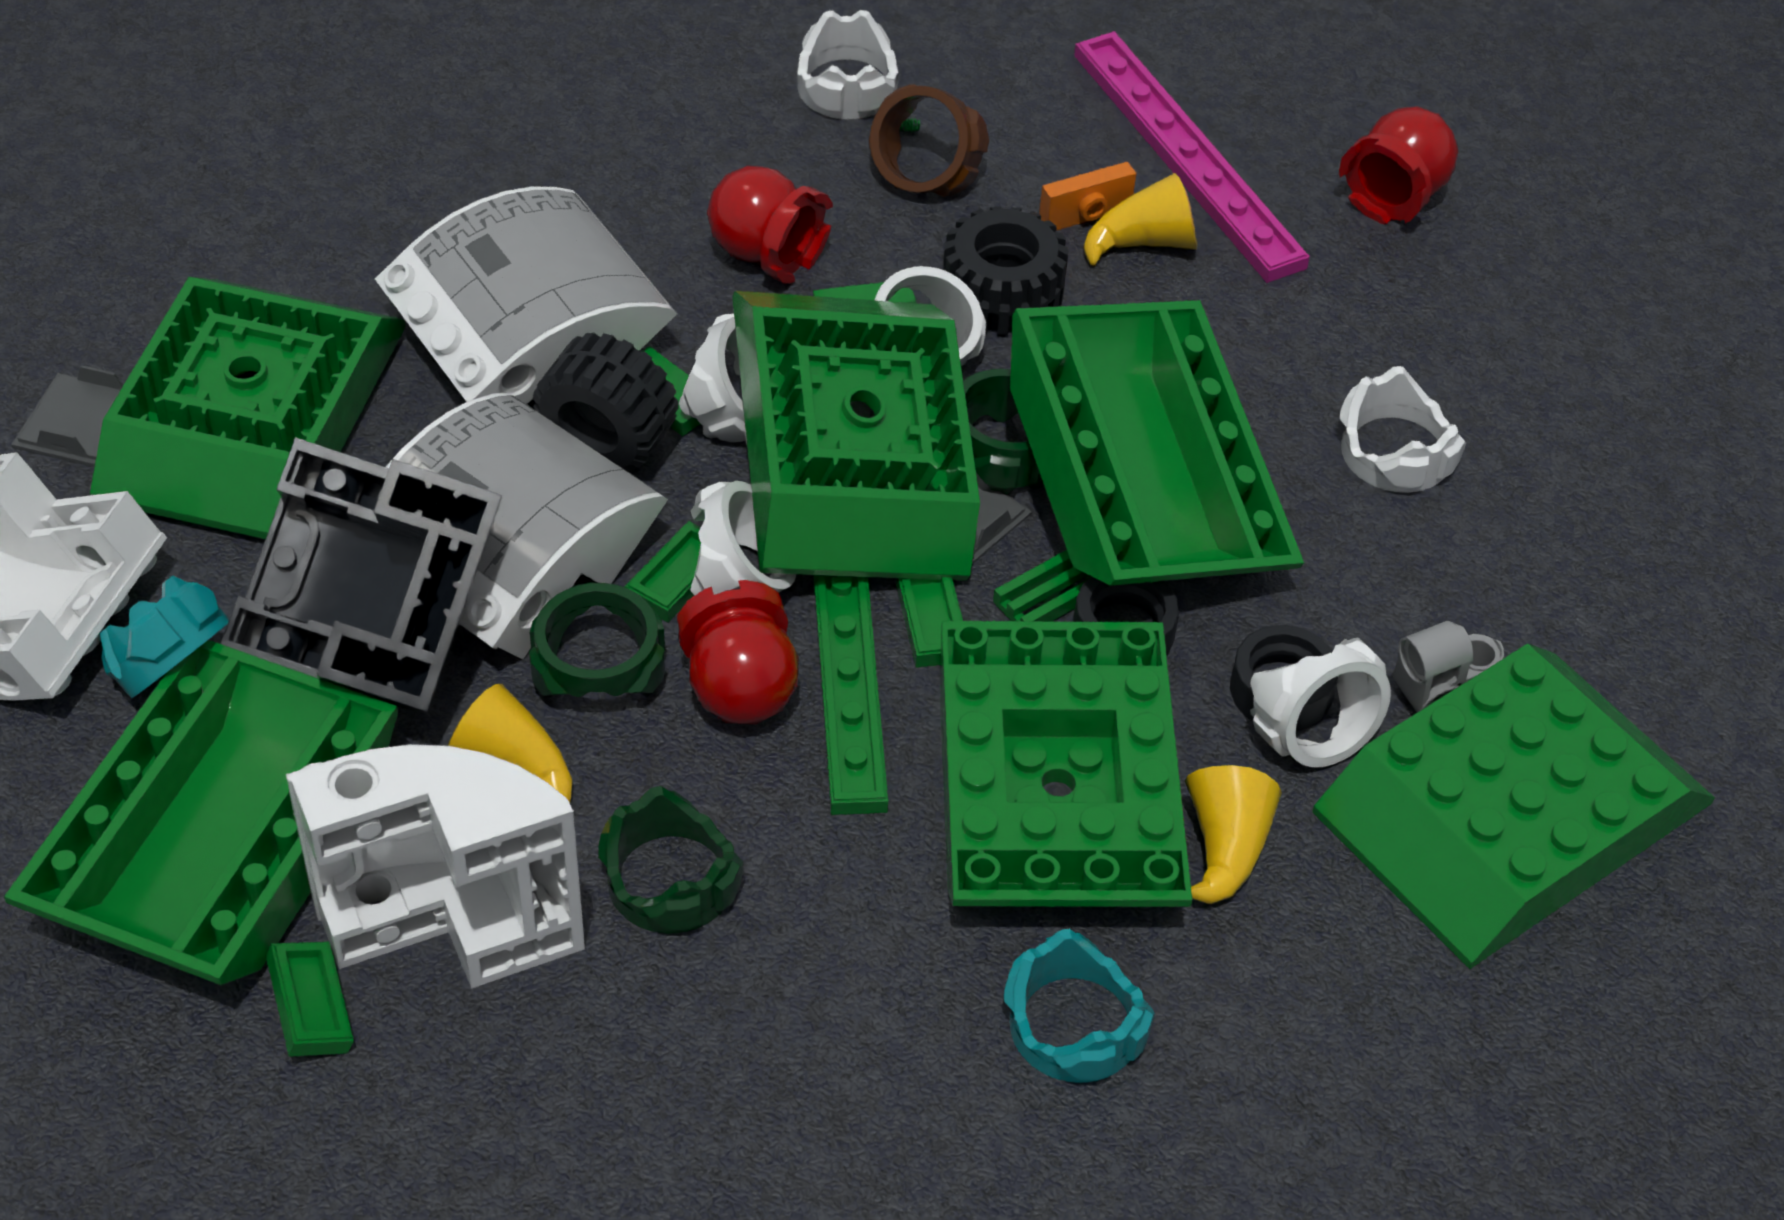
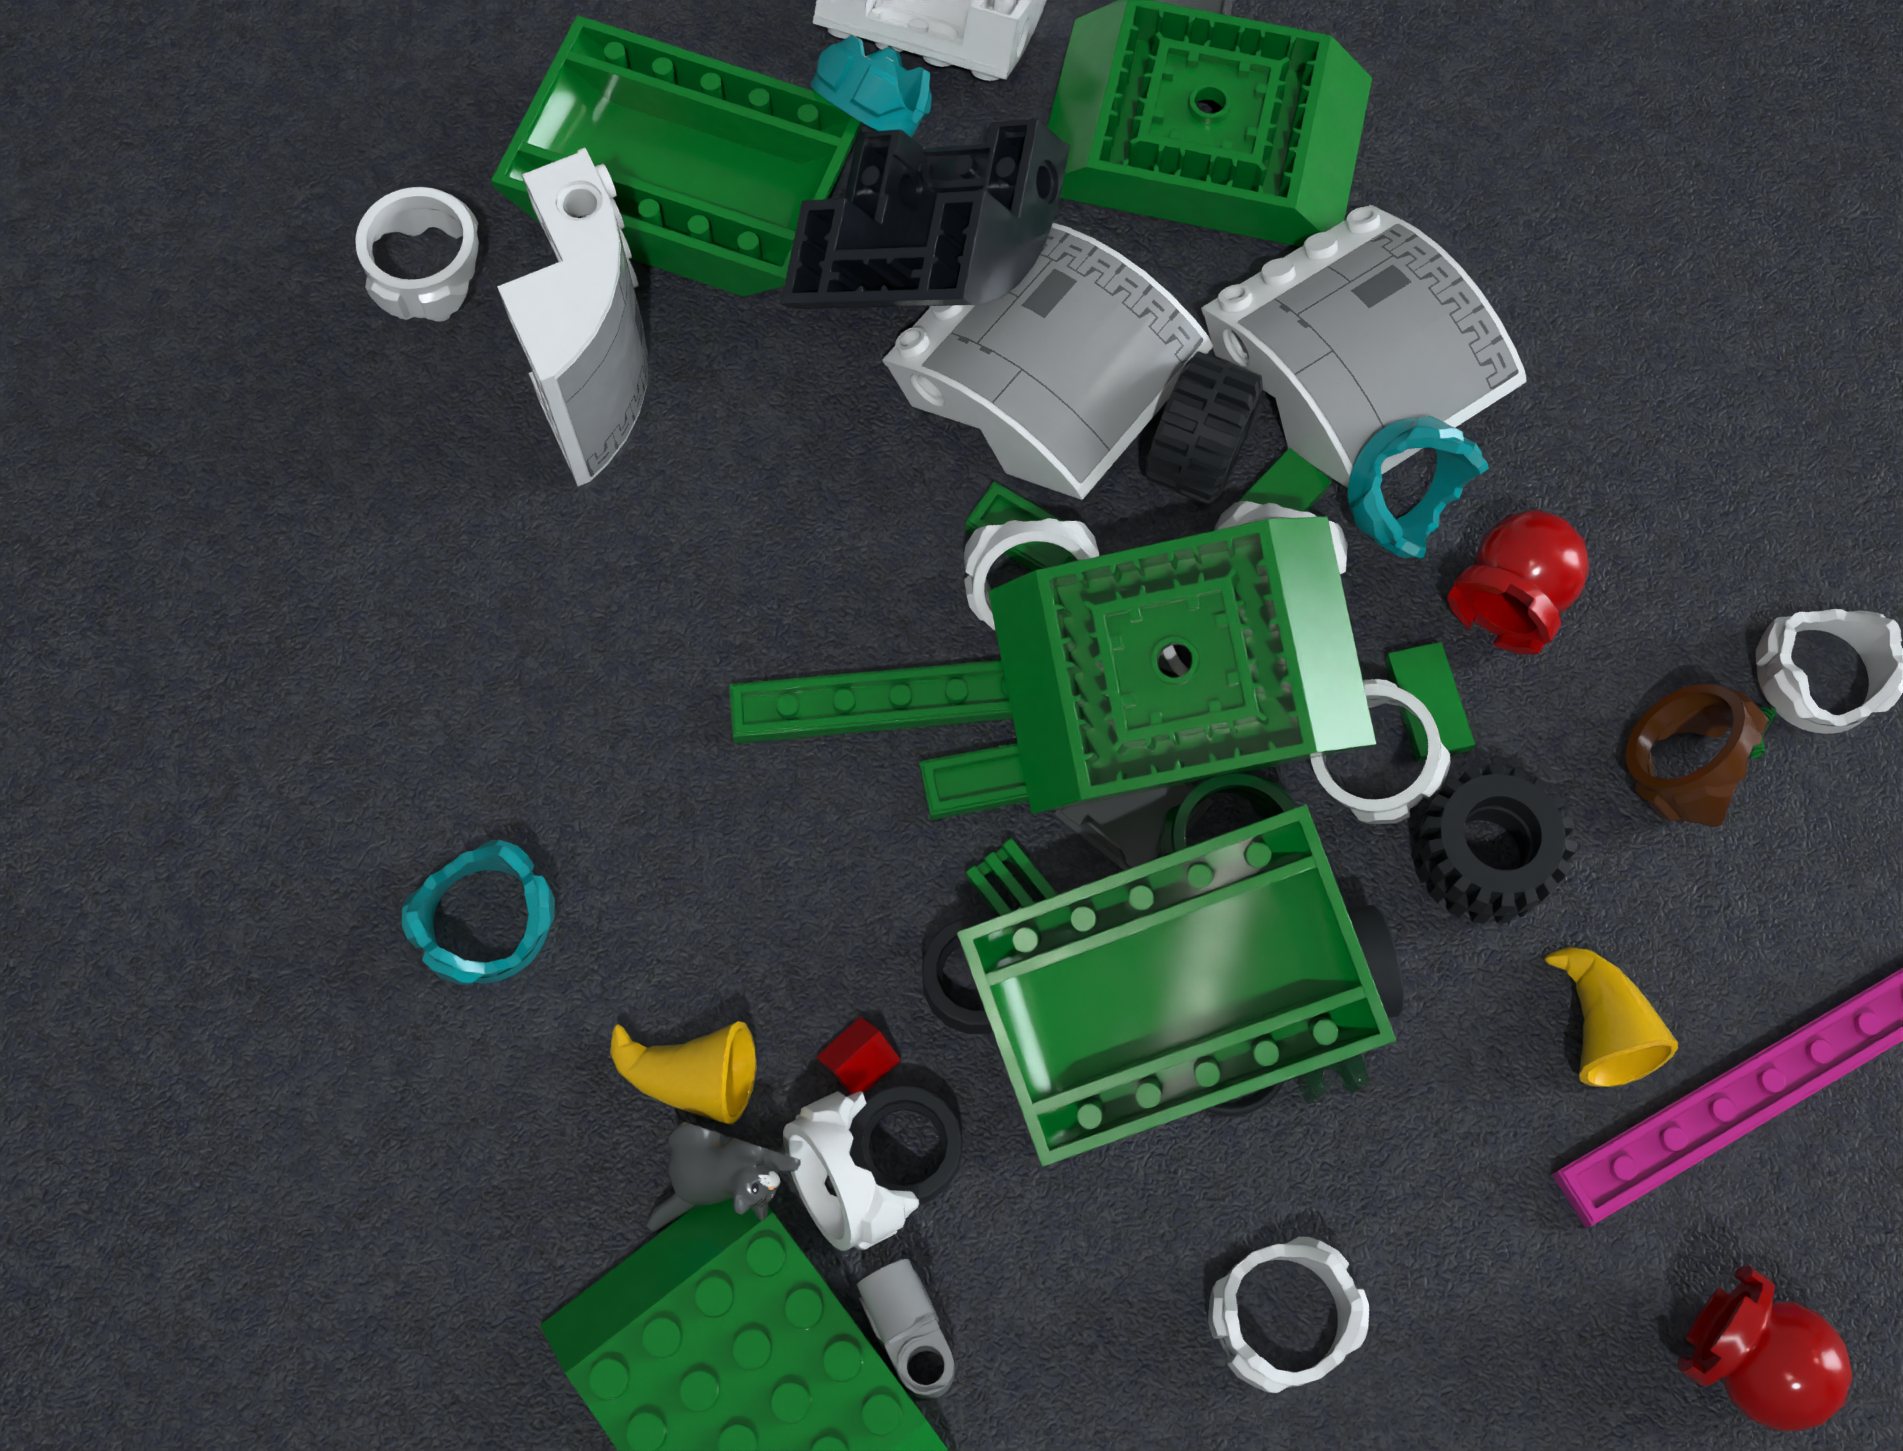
camera: 90 degrees right, 20 degrees up
(229, 1057) = (412, 213): none -> white piece
(309, 998) = (507, 263): green tile -> none
(507, 730) = (788, 391): yellow hat -> none
(637, 675) = (917, 415): dark green piece -> none
(653, 259) = (1457, 464): none -> teal piece
(685, 903) = (665, 493): dark green piece -> none
(739, 652) = (875, 583): red tile -> none
(1071, 709) = (675, 858): green slope -> none
(1086, 195) = (1645, 948): orange plate -> none
(1202, 715) = (859, 1057): none -> red slope
(1324, 800) = (717, 1167): none -> dark grey animal

